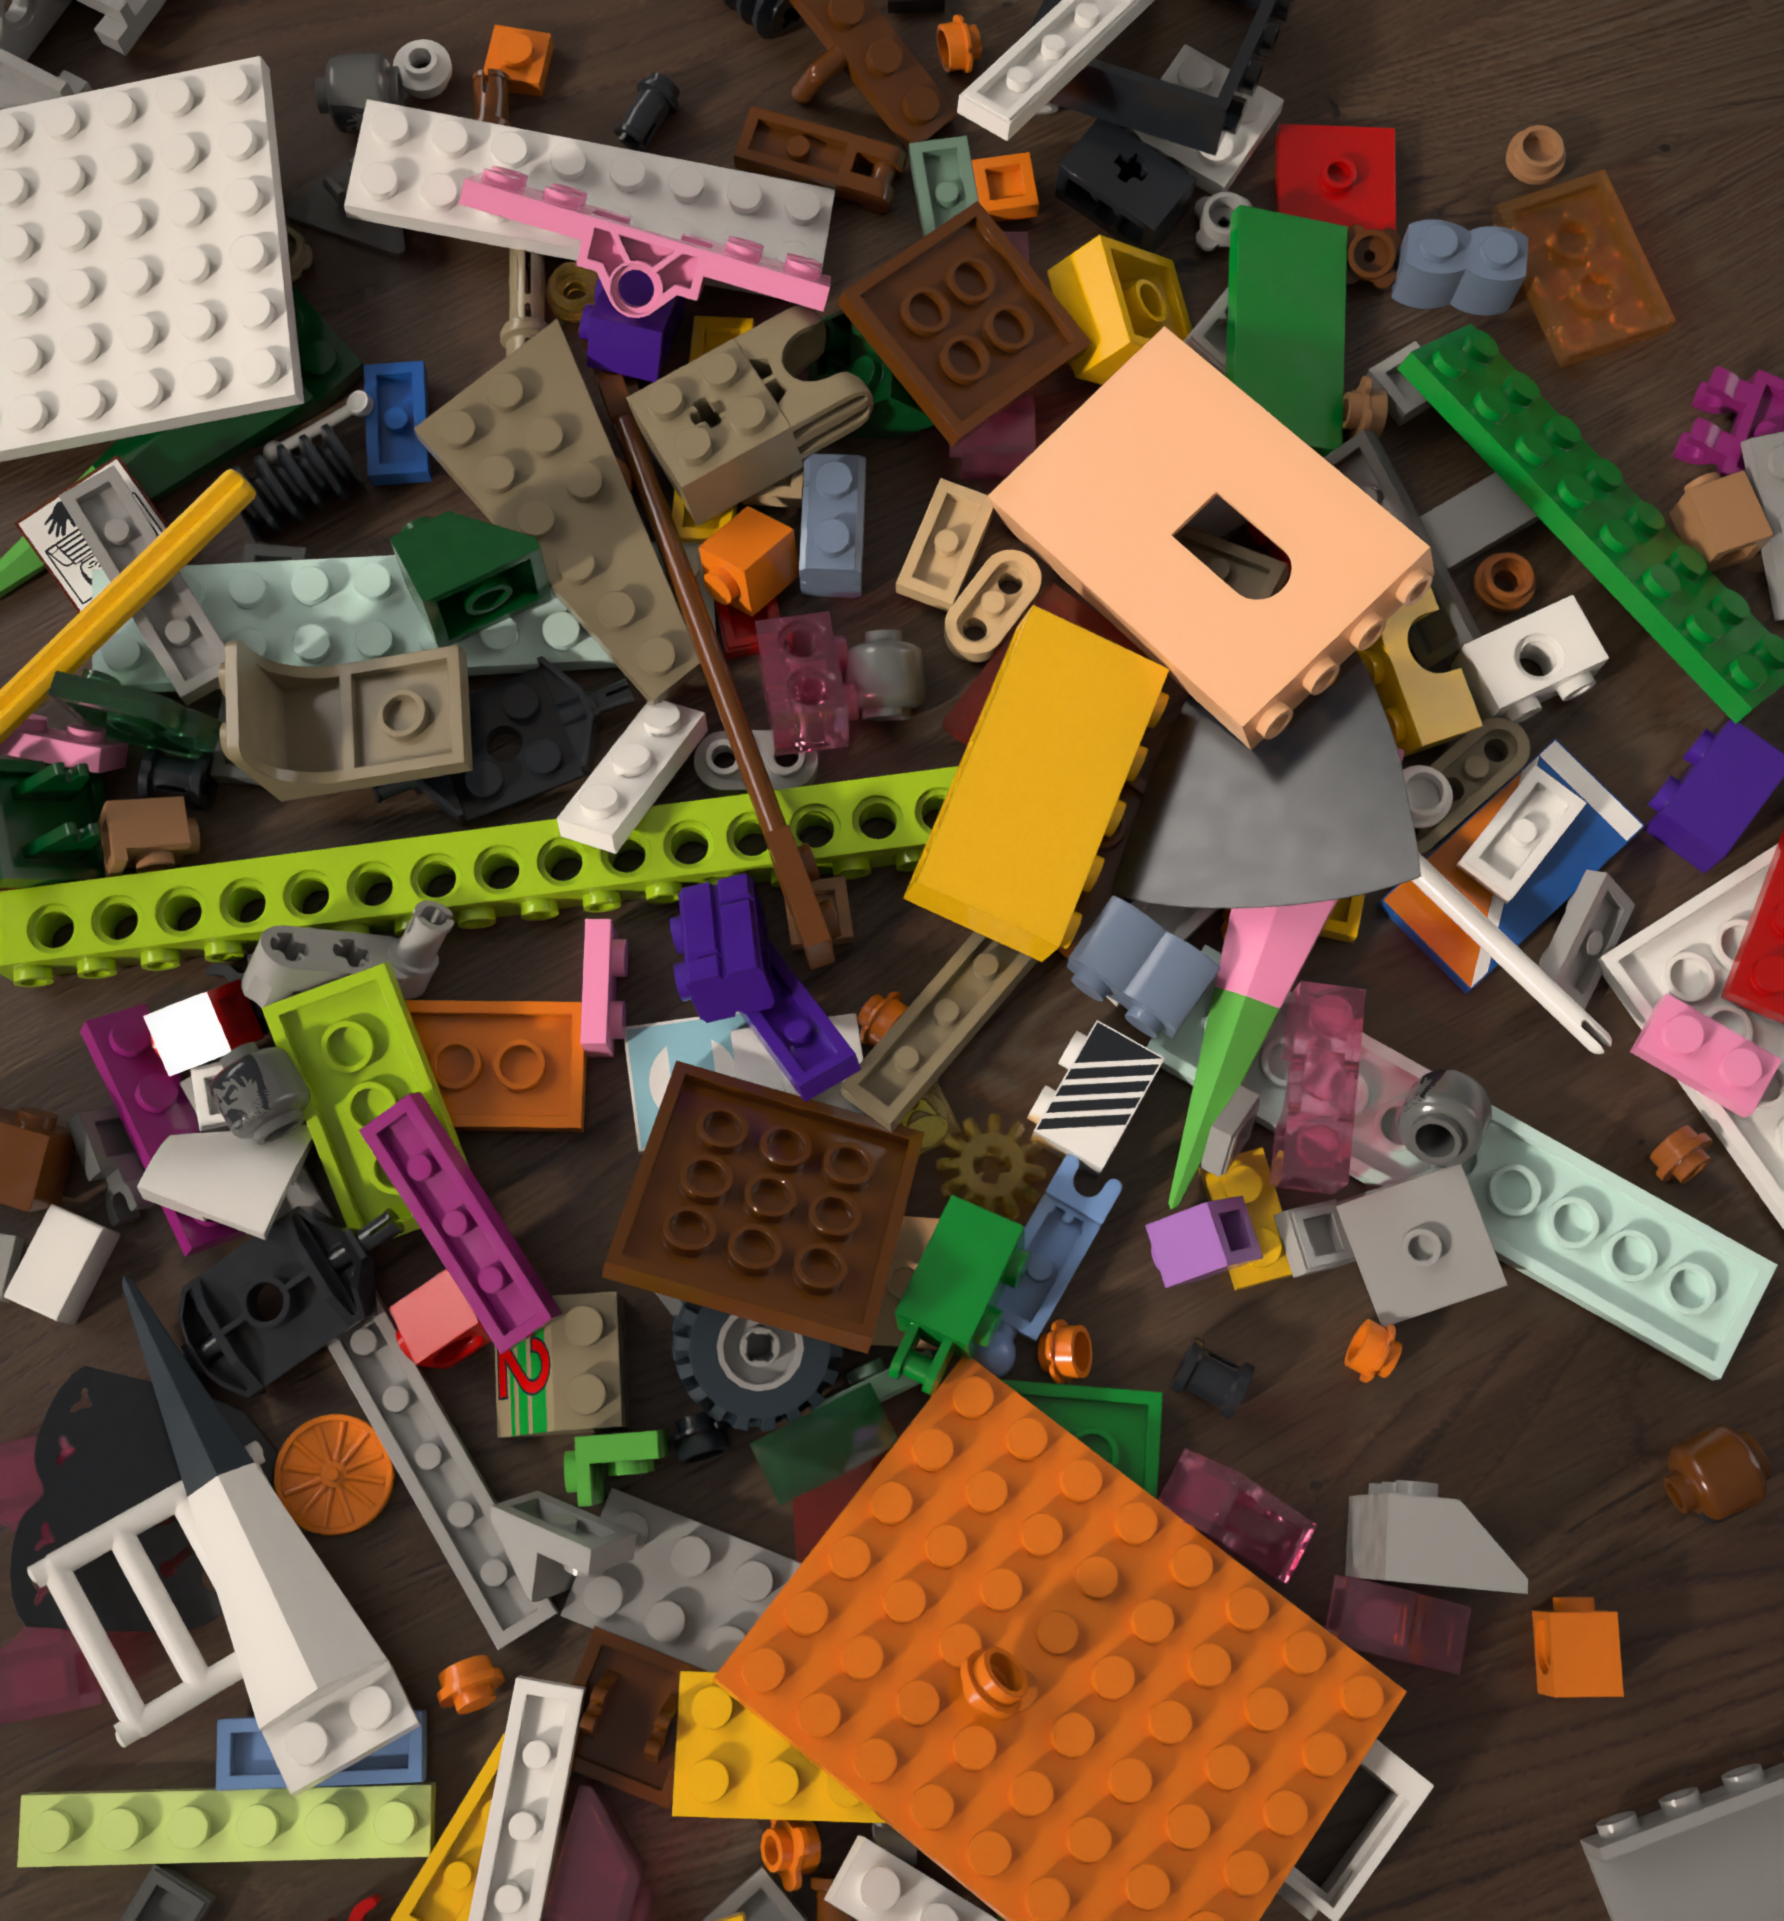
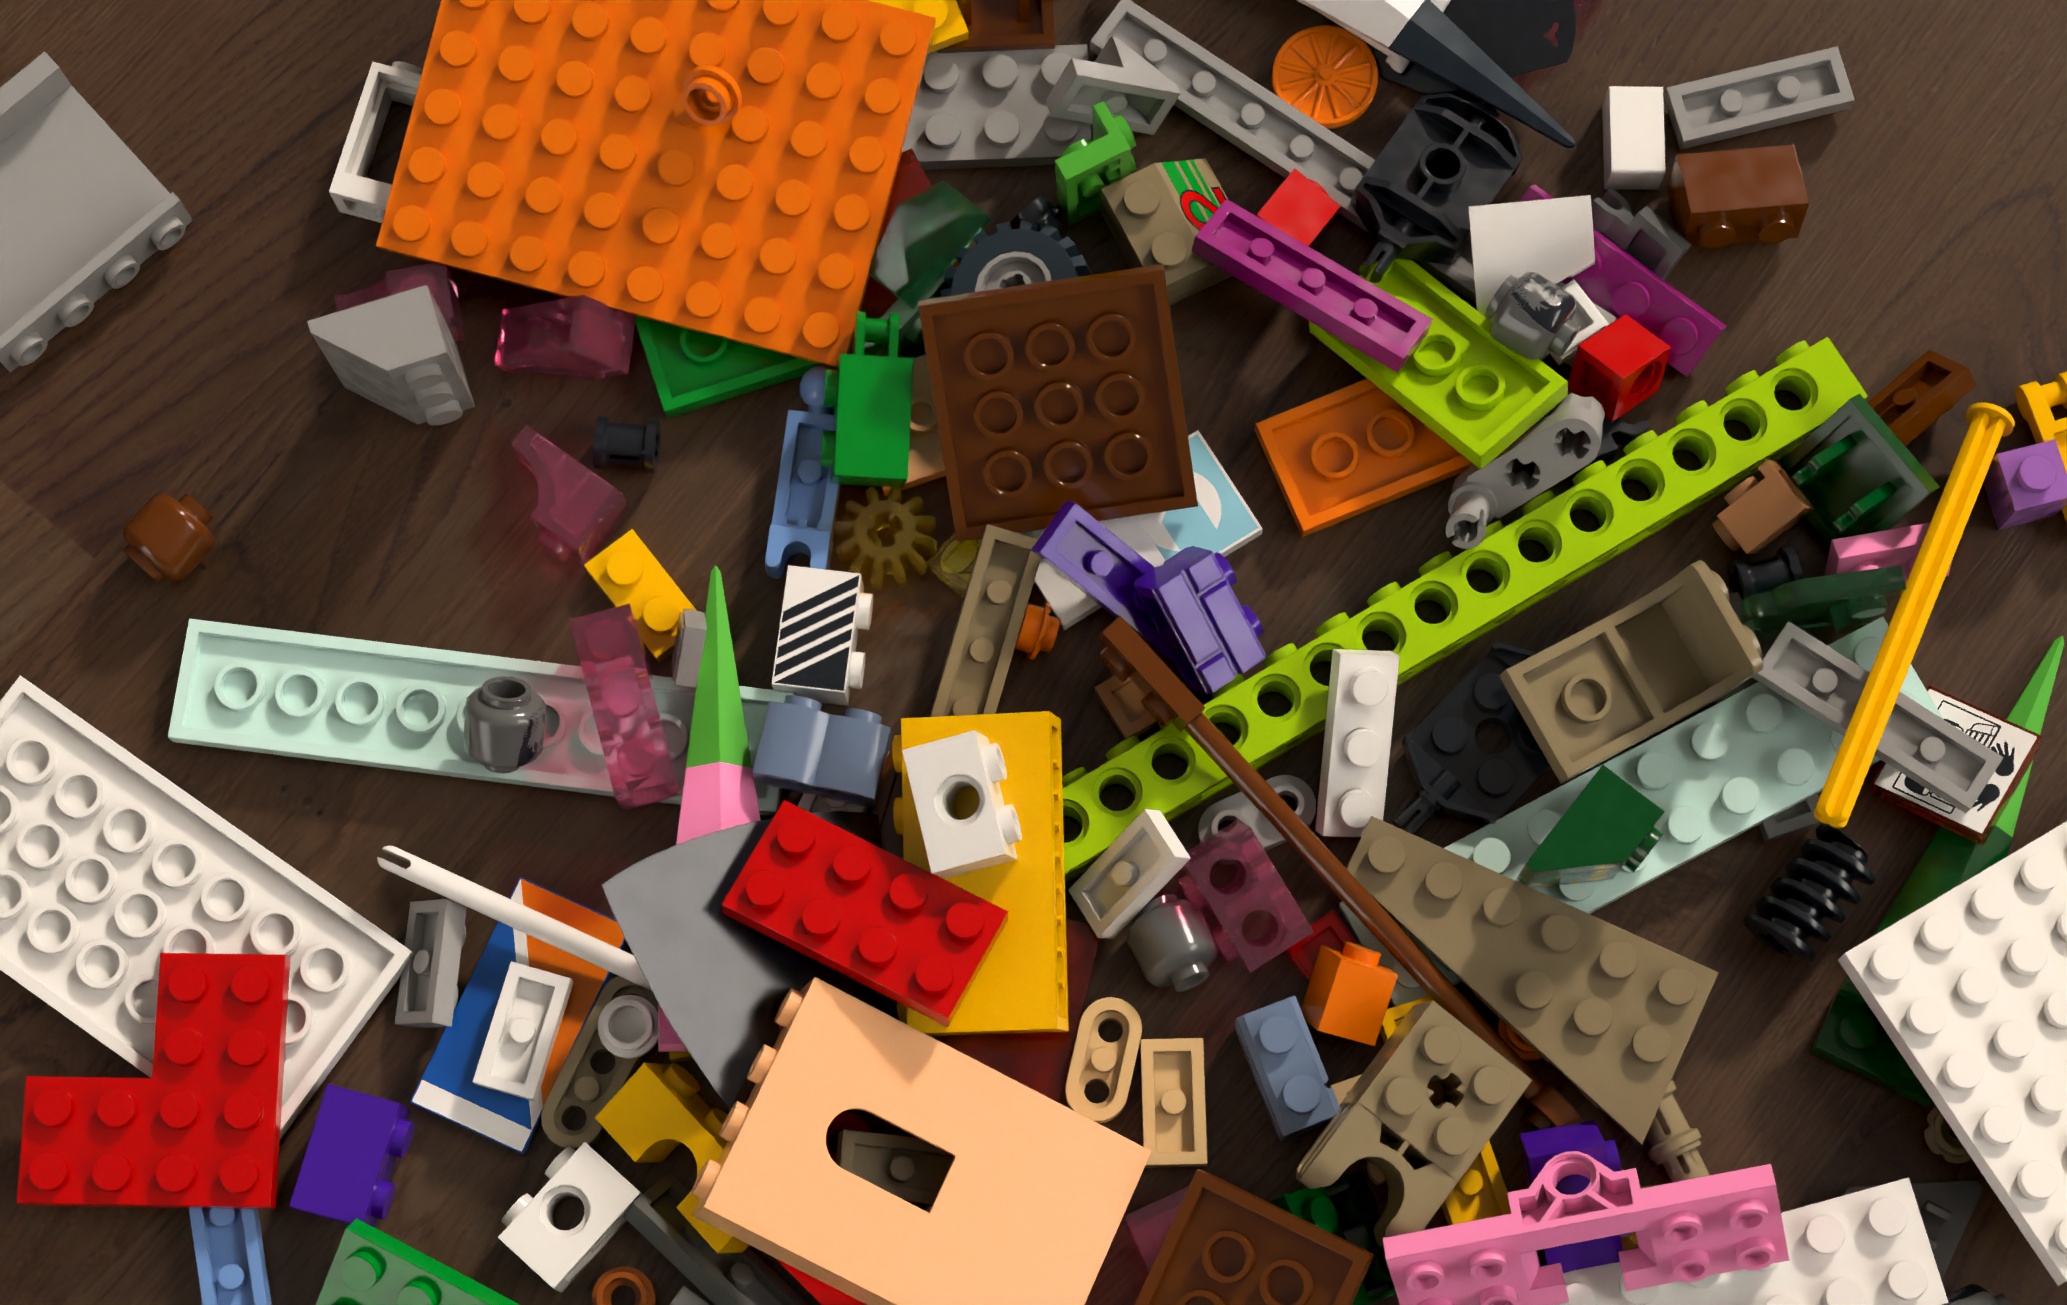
camera: 160 degrees right, 0 degrees up
(358, 404) = (1794, 996): light grey hinge -> none
(399, 406) = (1753, 1004): blue plate -> none
(602, 1016) = (1304, 571): bright pink plate -> none
(899, 741) = (1129, 874): none -> white plate
(1059, 793) = (936, 776): none -> white brick
(1065, 1352) = (759, 415): orange plate -> none
(1170, 770) = (865, 912): none -> red plate
(1203, 1241) = (676, 546): medium lavender brick -> none
(1289, 1342) = (574, 504): none -> clear pink arch
(1314, 1238) = (580, 592): light grey tile -> none
(1373, 1351) = (496, 525): orange plate -> none
(1420, 1244) = (487, 622): light grey plate -> none
(1577, 1650) = (243, 351): orange brick -> none
(1682, 1155) = (280, 803): dark orange plate -> none
(1706, 1055) = (288, 892): bright pink plate -> none

